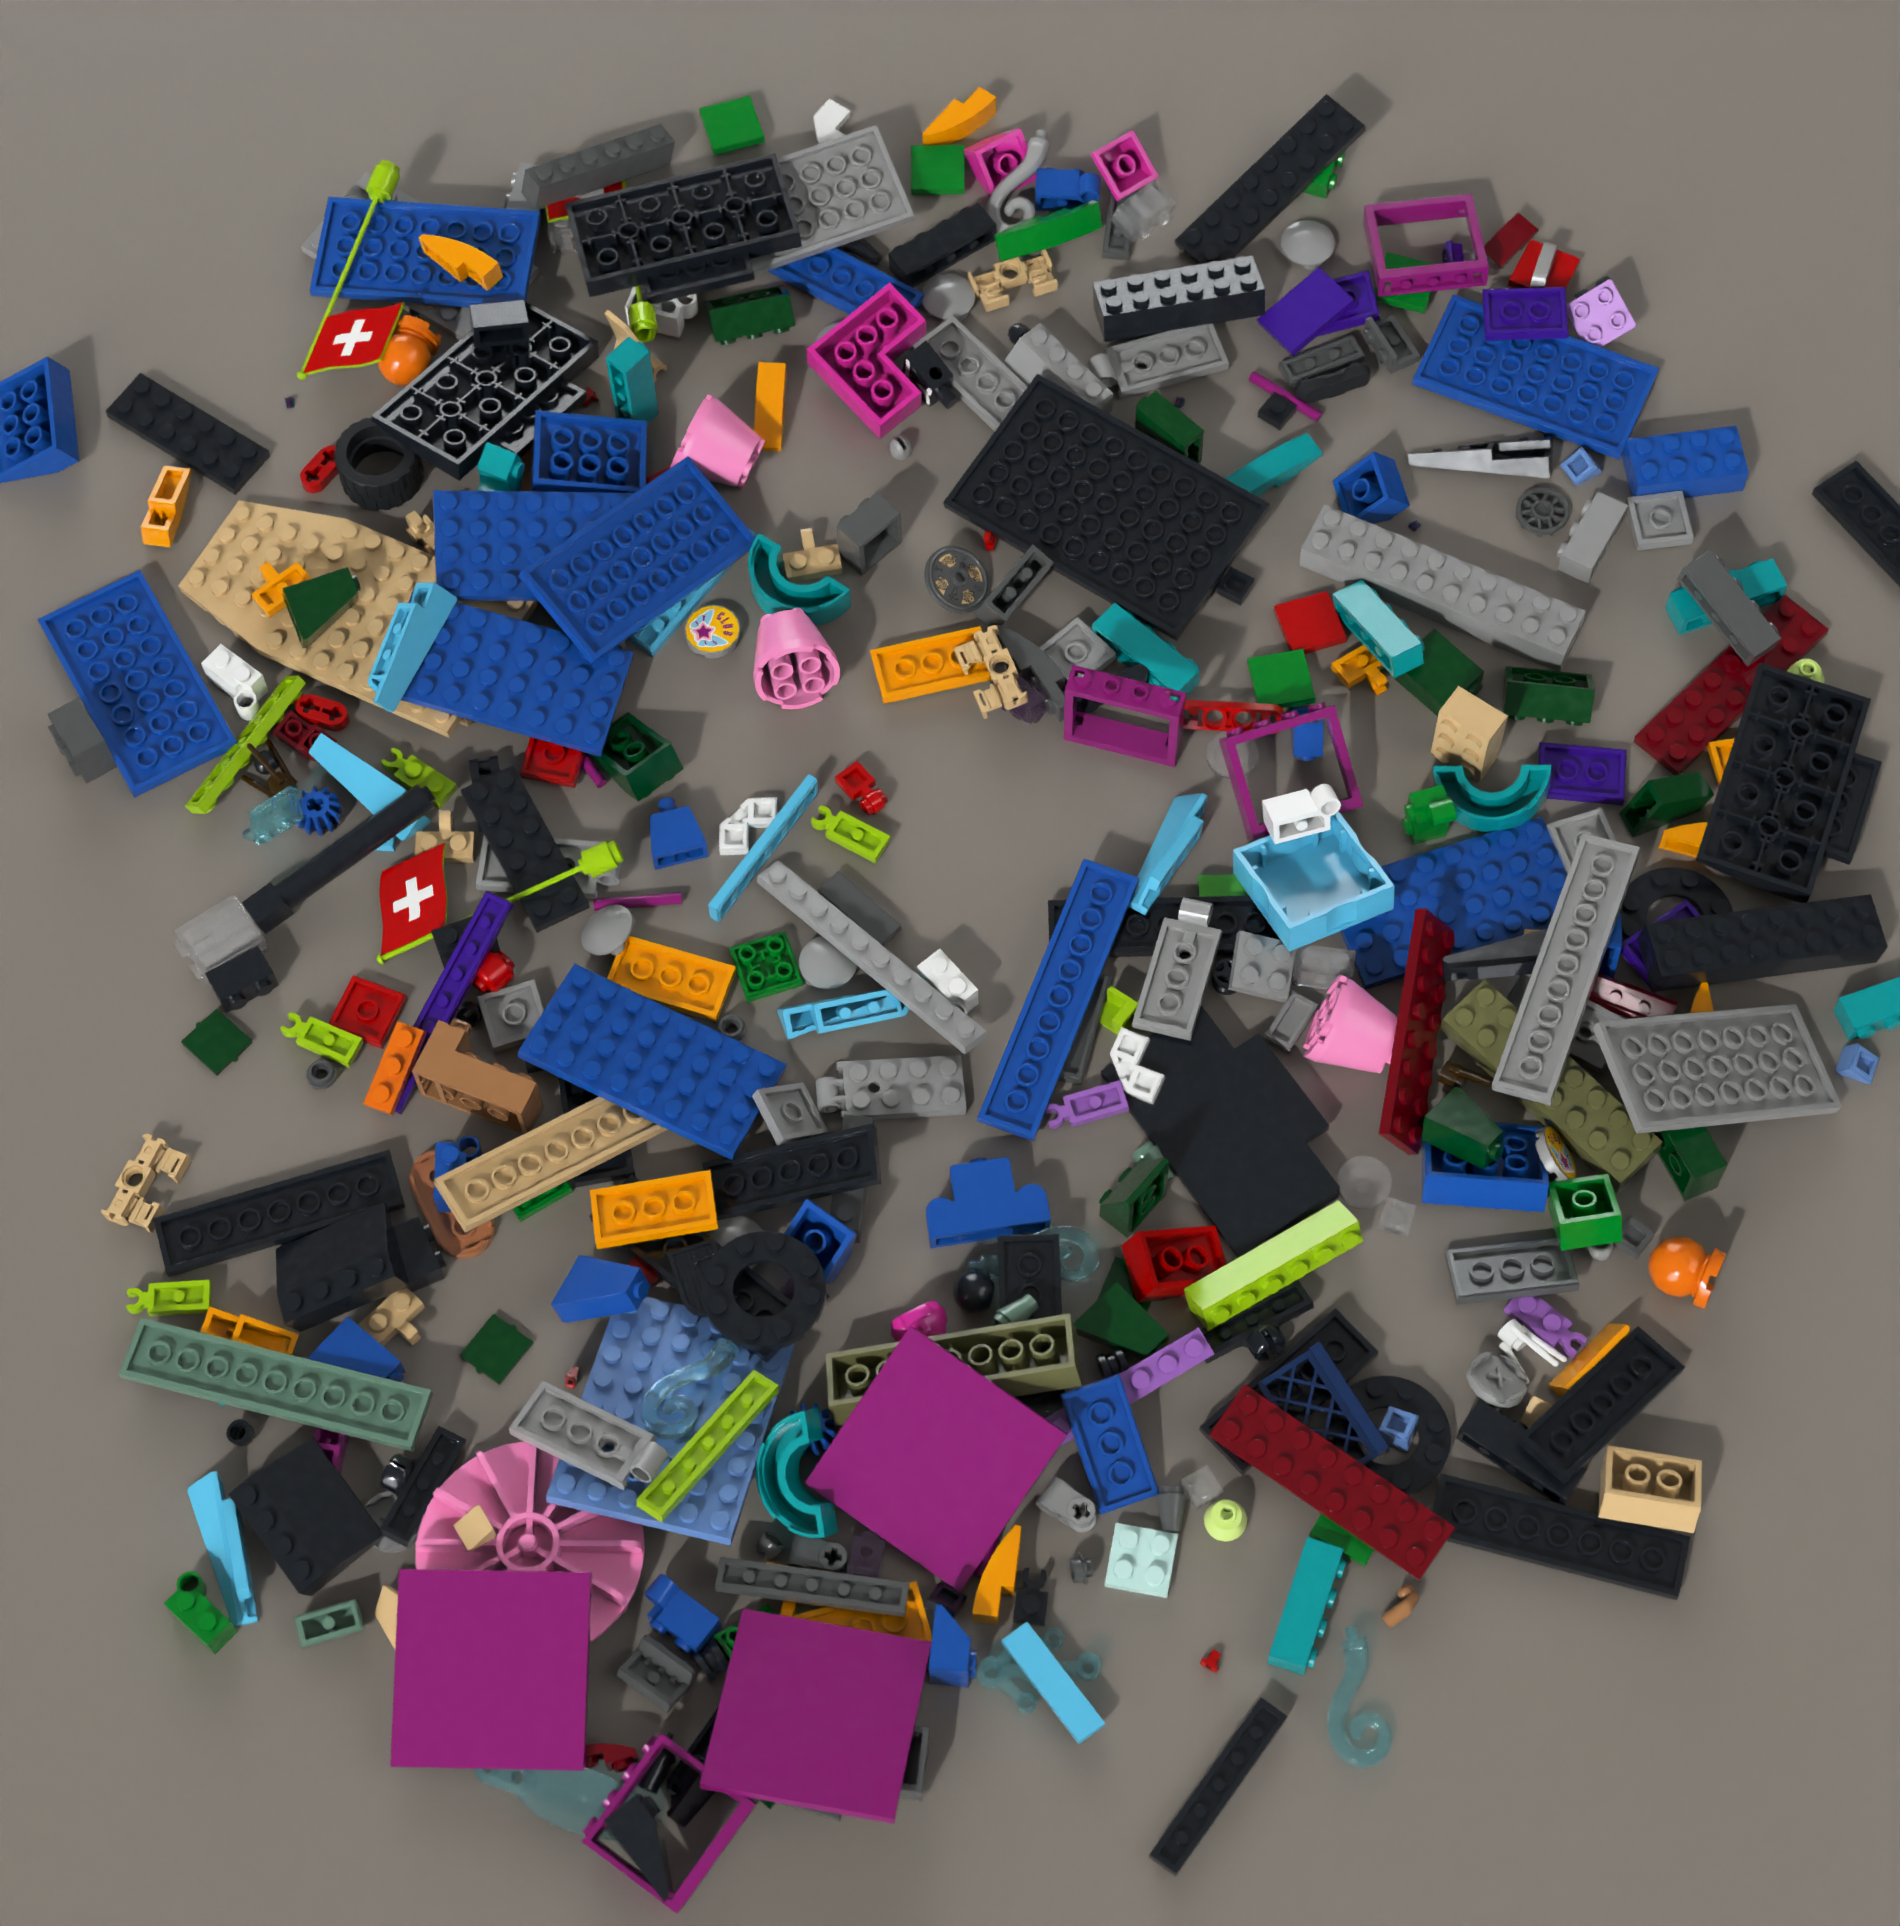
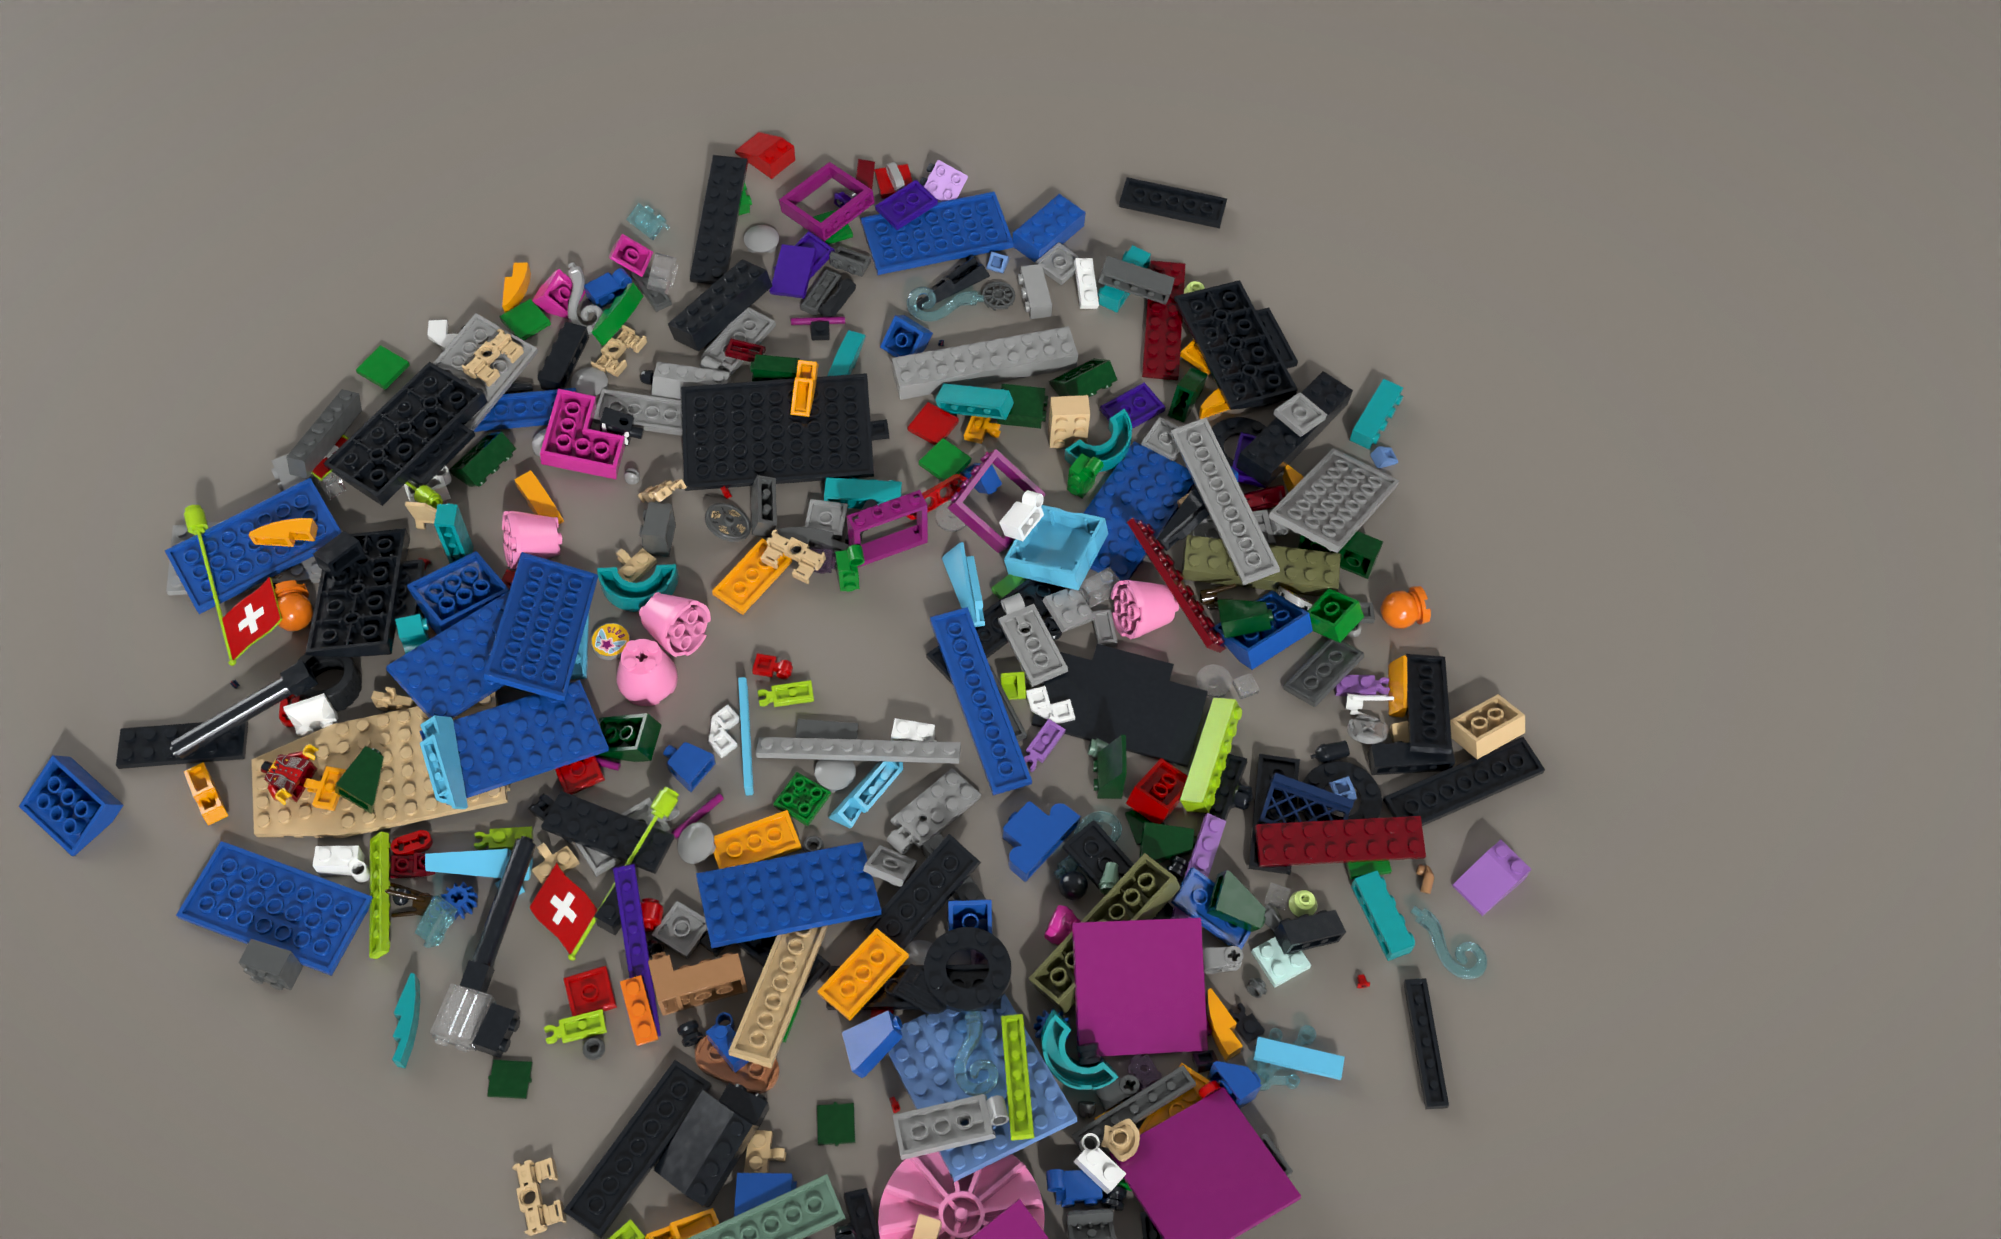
camera: 45 degrees left, 5 degrees down
(173, 895) = (407, 1013): none -> teal slope
(253, 543) = (289, 773): none -> torso
(331, 493) = (311, 714): none -> white slope
(335, 440) = (293, 680): none -> black brick
(428, 1133) = (690, 1033): none -> black wheel
(714, 1610) = (1098, 1165): none -> white hinge
(715, 696) = (645, 673): none -> bright pink cone
(765, 1605) = (1121, 1139): none -> tan animal
(813, 1485) = (1088, 1053): none -> black wheel
(871, 181) = (481, 365): none -> tan piece
(899, 487) = (660, 491): none -> tan piece
(914, 1631) = (1208, 1089): none -> red tile
(1043, 732) = (847, 567): none -> green hinge
(1133, 1455) = (1235, 903): none -> dark green slope
(1169, 394) = (744, 353): none -> dark red tile
(1175, 472) = (804, 388): none -> light orange slope
(1186, 131) = (646, 221): none -> clear light blue bracket
(1196, 1554) = (1309, 931): none -> black brick
(1411, 133) = (767, 153): none -> red slope
(1427, 1372) = (1330, 752): none -> black piece
(1483, 1668) = (1492, 877): none -> medium lavender slope
(1488, 485) = (960, 299): none -> clear light blue plant
(1667, 568) = (1086, 283): none -> white plate
(1771, 928) = (1300, 414): none -> light grey plate

